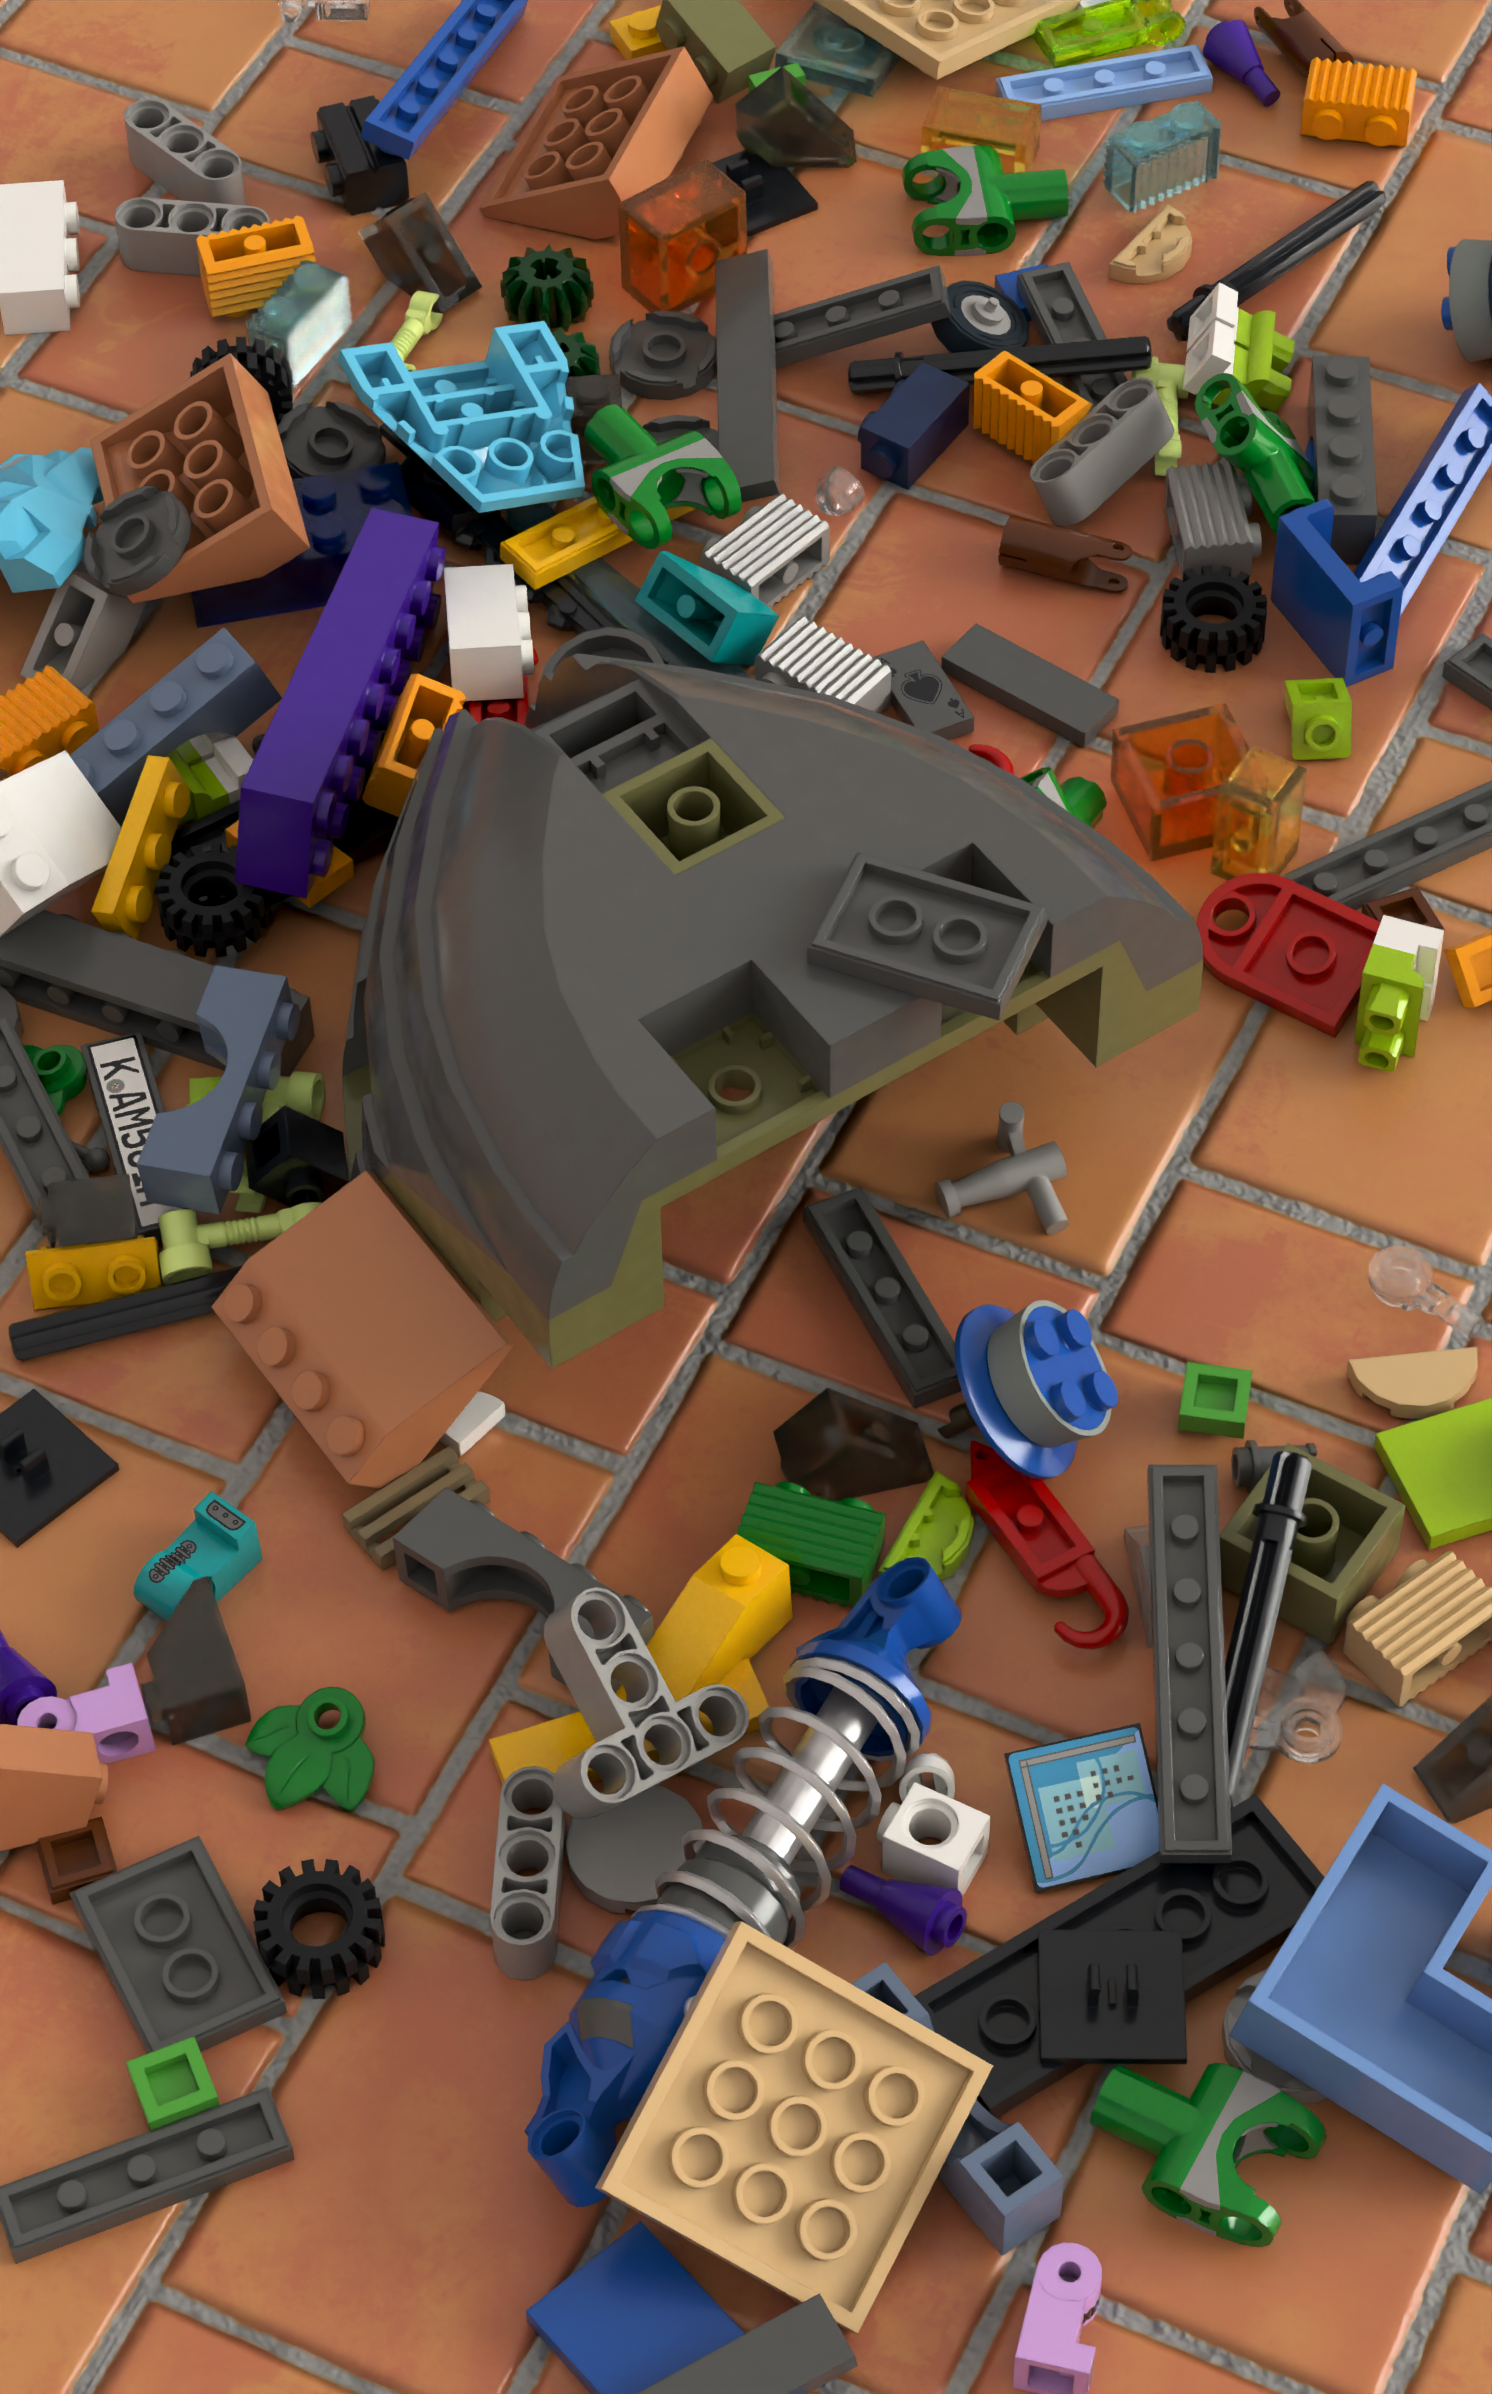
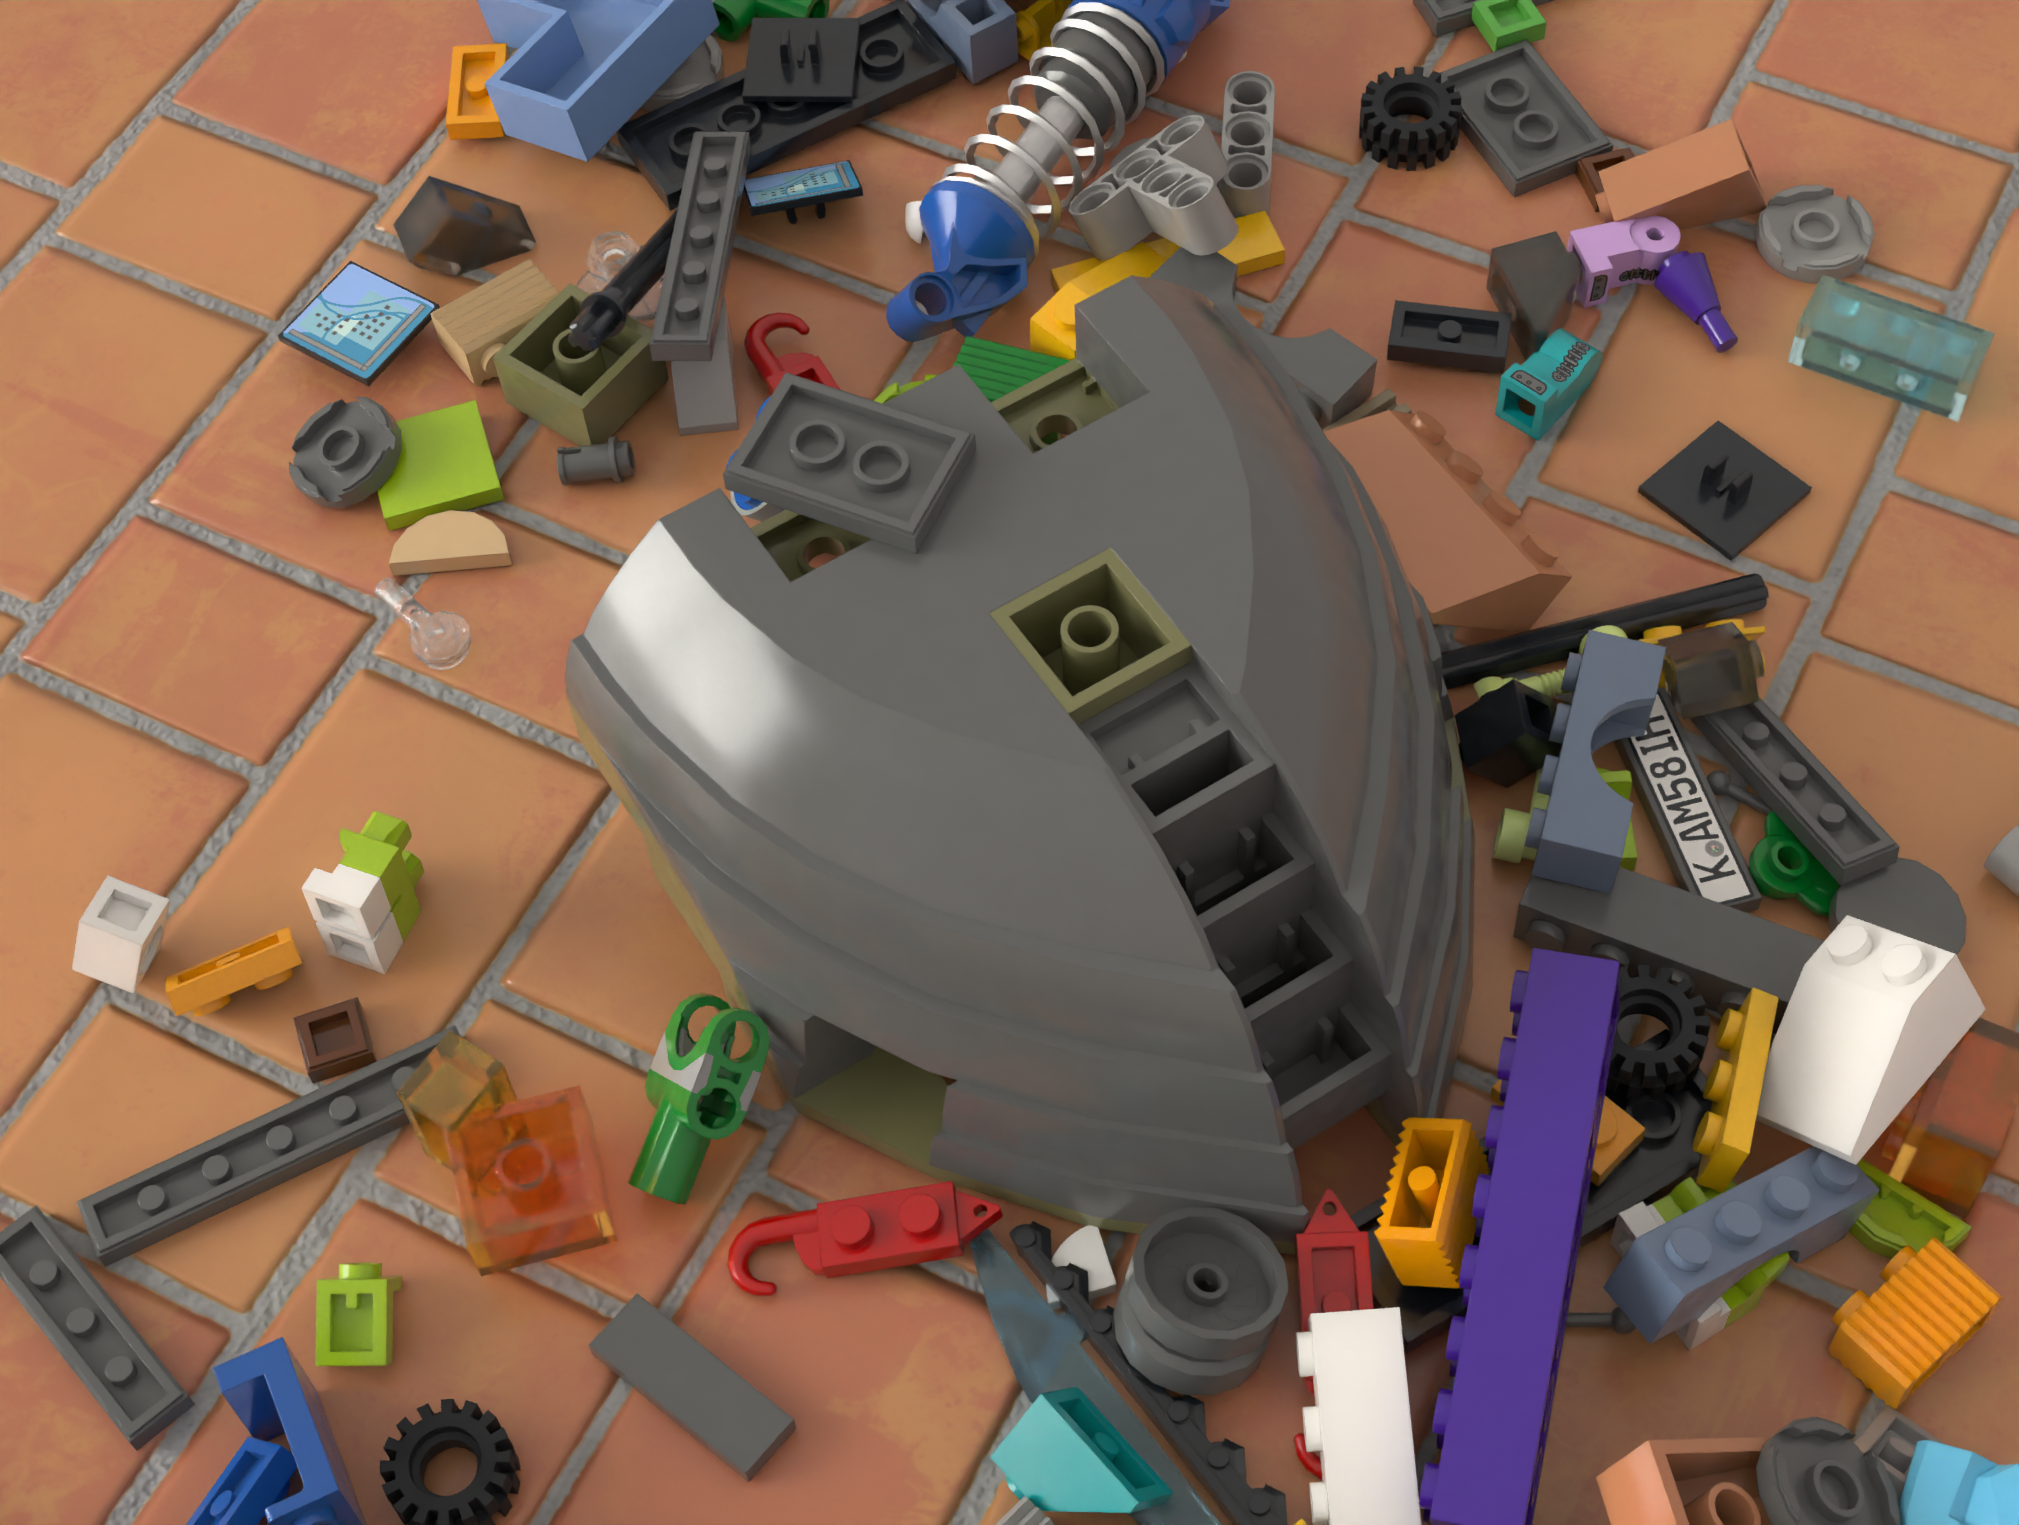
camera: 175 degrees left, 5 degrees up
(304, 1622) = (1449, 336): none -> black plate
(313, 1757) = (1429, 249): green plate -> none
(824, 664) = (944, 1374): light grey brick -> none
(922, 1912) = (940, 129): dark purple cone -> none
(924, 693) = (824, 1375): dark grey tile -> none
(936, 1816) = (918, 160): white brick -> none
(1215, 1400) = (632, 513): bright green plate -> none
(1292, 952) = (462, 979): red tile -> none

